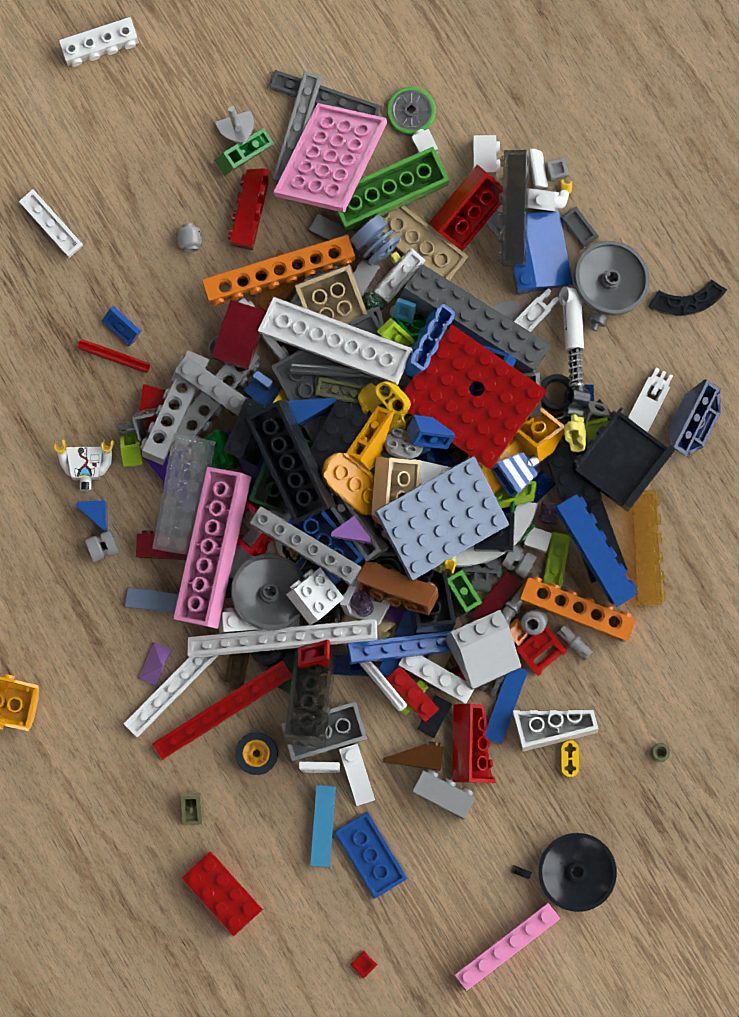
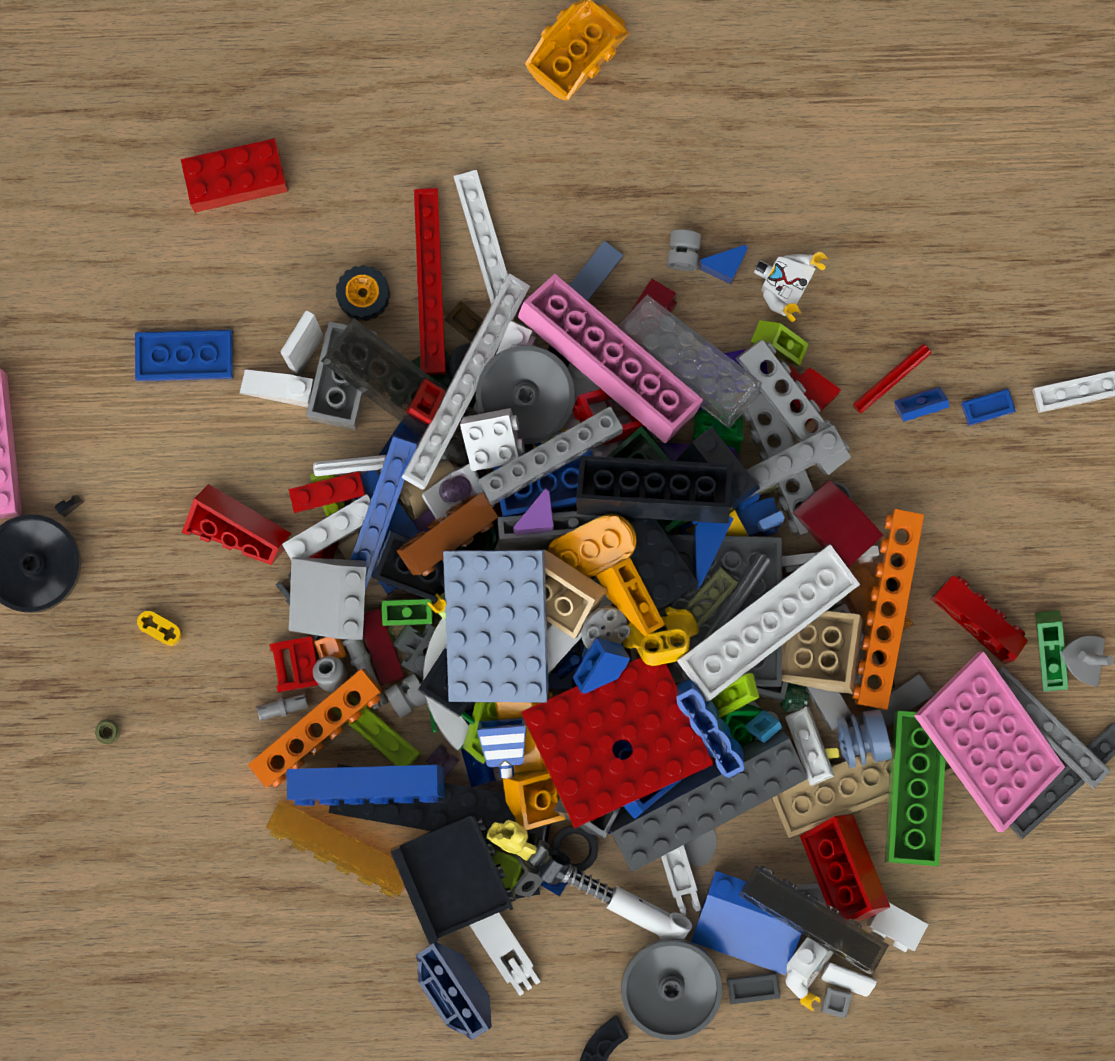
camera: 115 degrees right, 0 degrees up
(97, 281) = (988, 407): none -> blue tile
(137, 424) = (798, 357): dark grey bracket -> none
(155, 663) = (523, 240): medium lavender slope -> none
(189, 238) = (982, 534): light grey head -> none
(191, 808) = (345, 193): olive slope -> none
(323, 826) = (243, 320): dark azure slope -> none
(363, 964) = (73, 284): red tile -> none
(411, 98) = (982, 876): flat silver wheel -> none
(423, 140) = (952, 863): white brick -> none
(423, 756) = (255, 466): reddish brown slope -> none
(433, 724) = (282, 499): black tile -> none
(444, 794) = (198, 466): light grey brick -> none
(505, 705) = (258, 590): blue tile -> none
(537, 540) = (419, 730): white brick -> none
(553, 726) = (204, 622): white wedge -> none
(597, 320) = (631, 944): dark grey tile -> none

